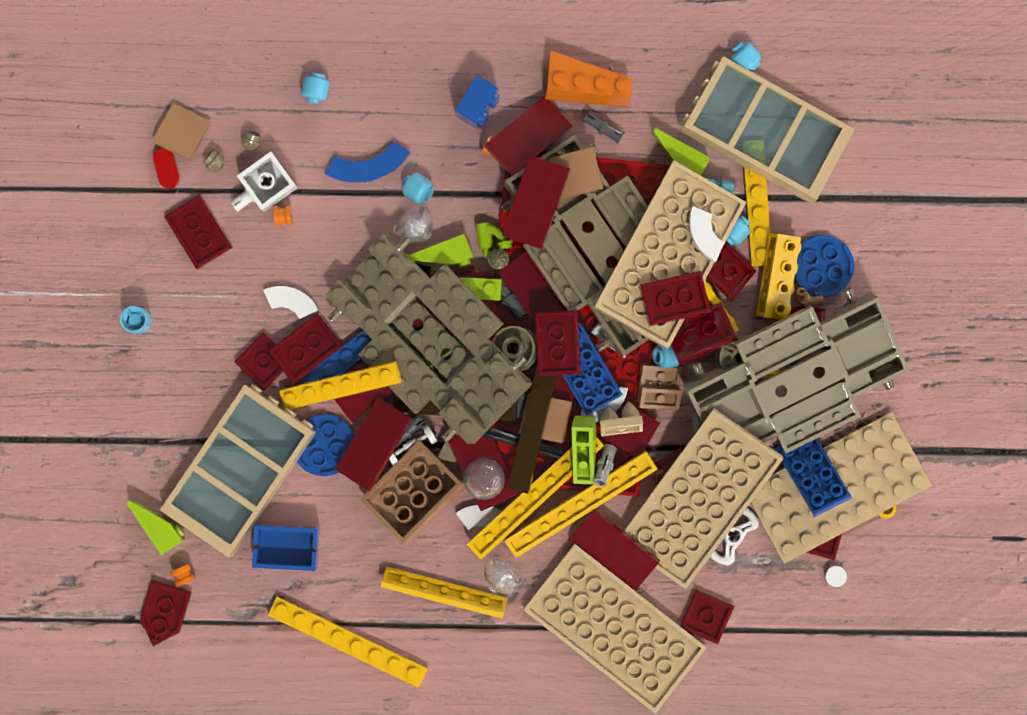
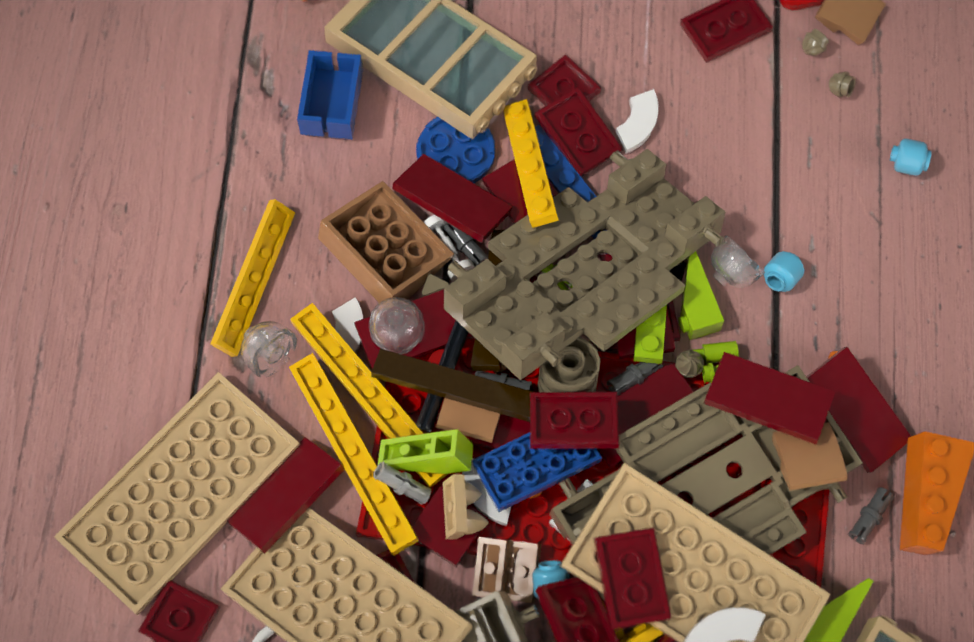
camera: 95 degrees right, 20 degrees down
(253, 181) = (788, 93): white brick -> none
(282, 215) = (747, 114): orange wheel -> none
(347, 641) = (203, 166): yellow plate -> none
(370, 169) = (806, 219): blue tile -> none
(477, 102) = (901, 346): blue brick -> none

